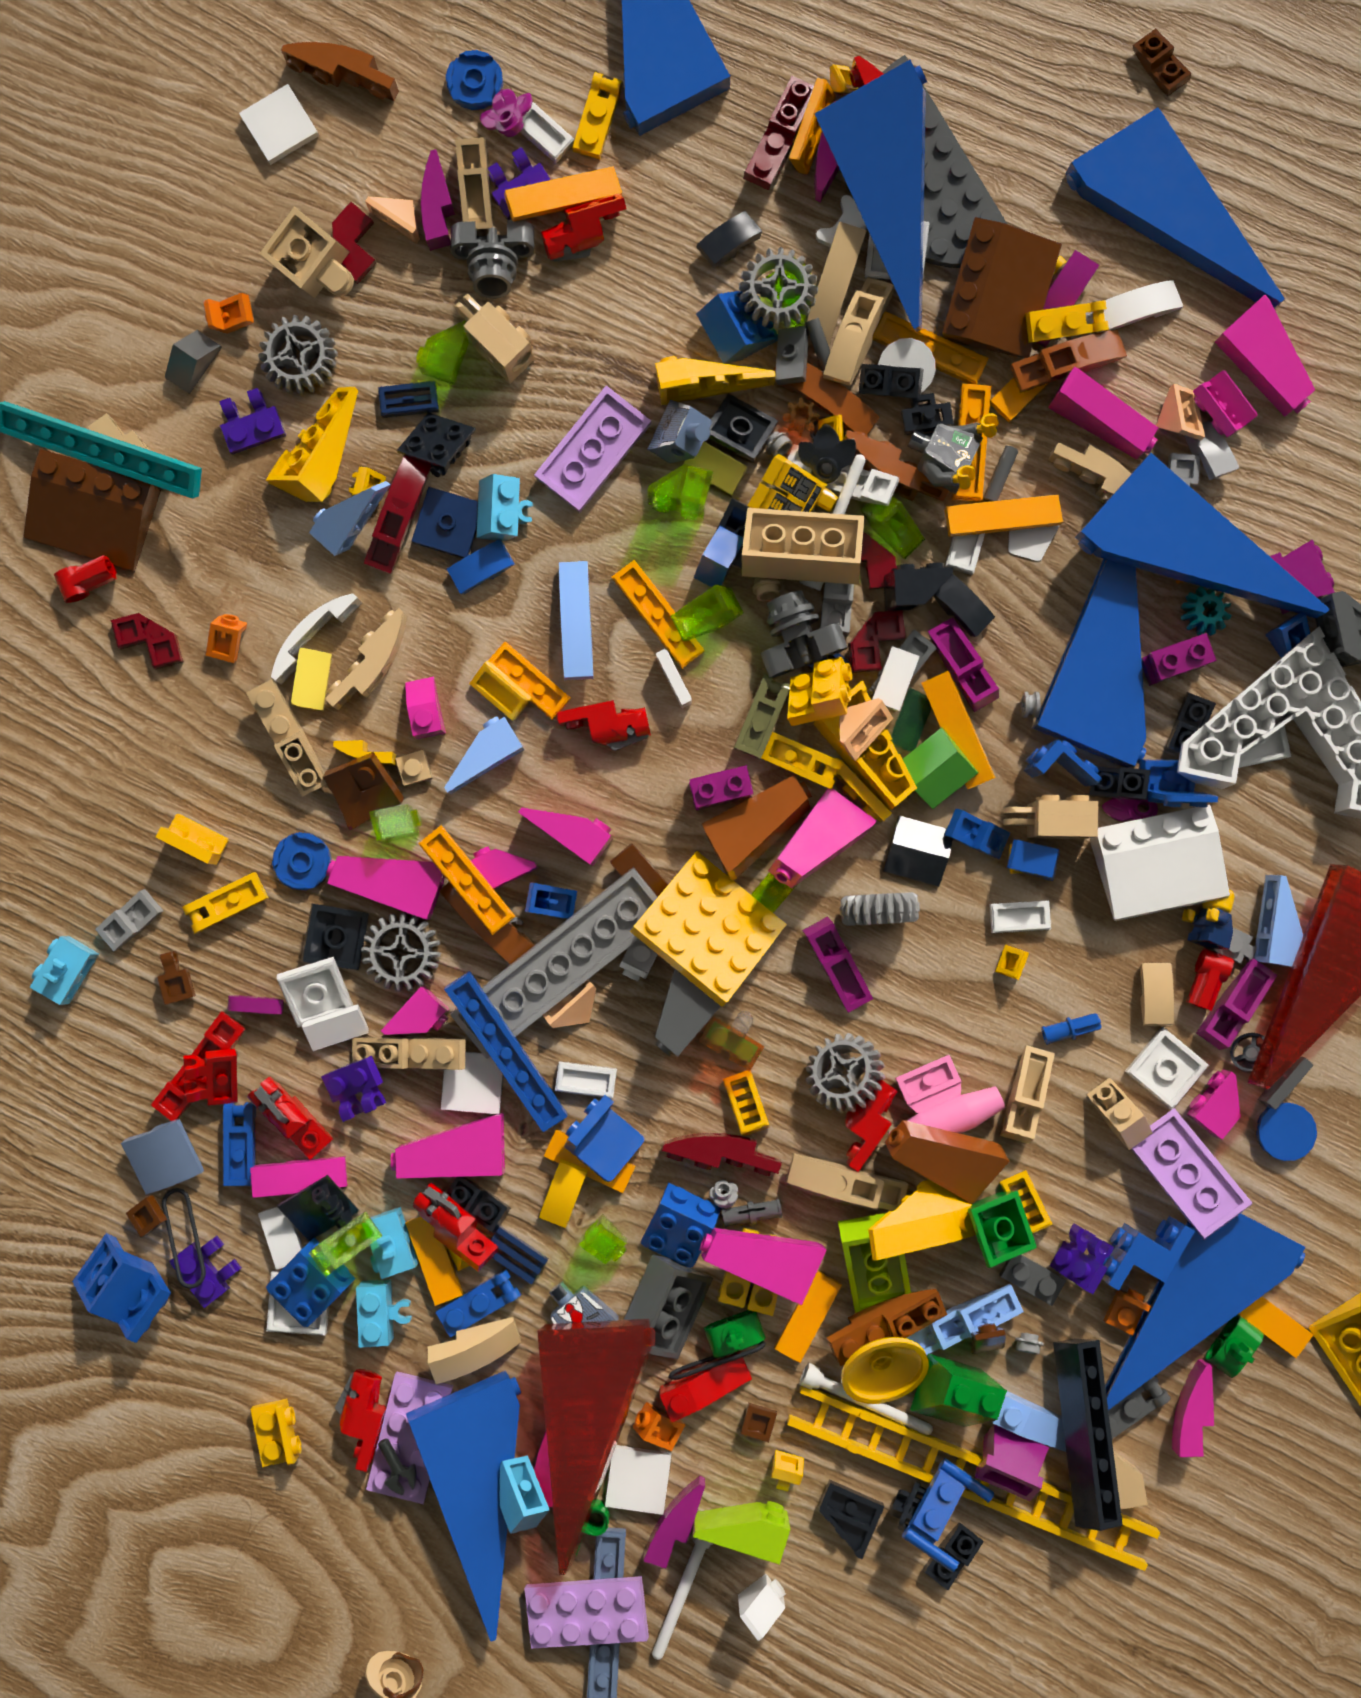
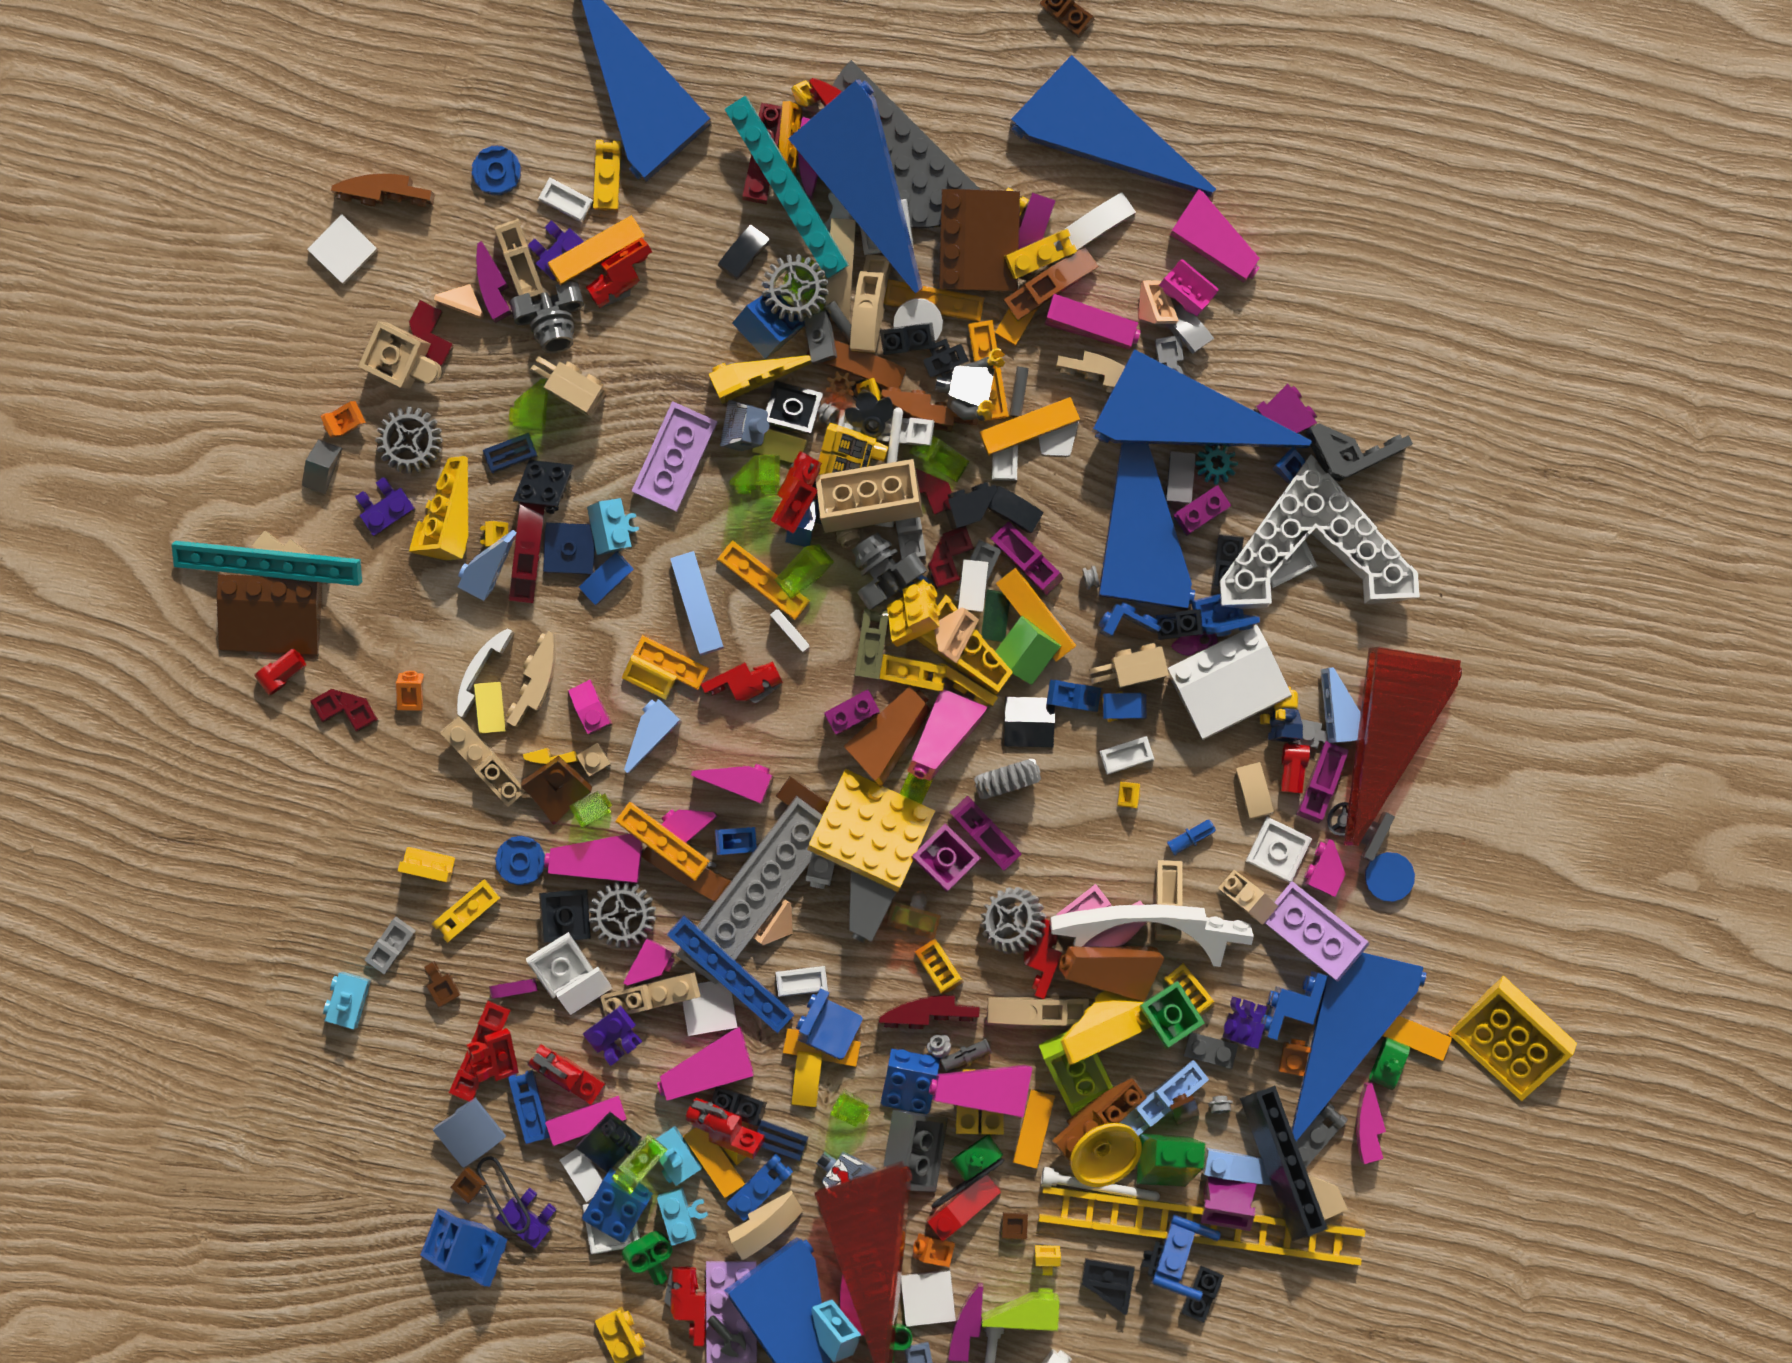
camera: 15 degrees left, 0 degrees up
(331, 1352) = (649, 1258): none -> green beam
(507, 112) = (531, 193): magenta plate -> none
(722, 519) = (796, 492): none -> red plate
(786, 981) = (946, 857): none -> magenta slope
(797, 172) = (786, 187): none -> teal plate
(1069, 1144) = (1209, 932): none -> white slope
(1161, 616) = (1180, 477): none -> light grey slope

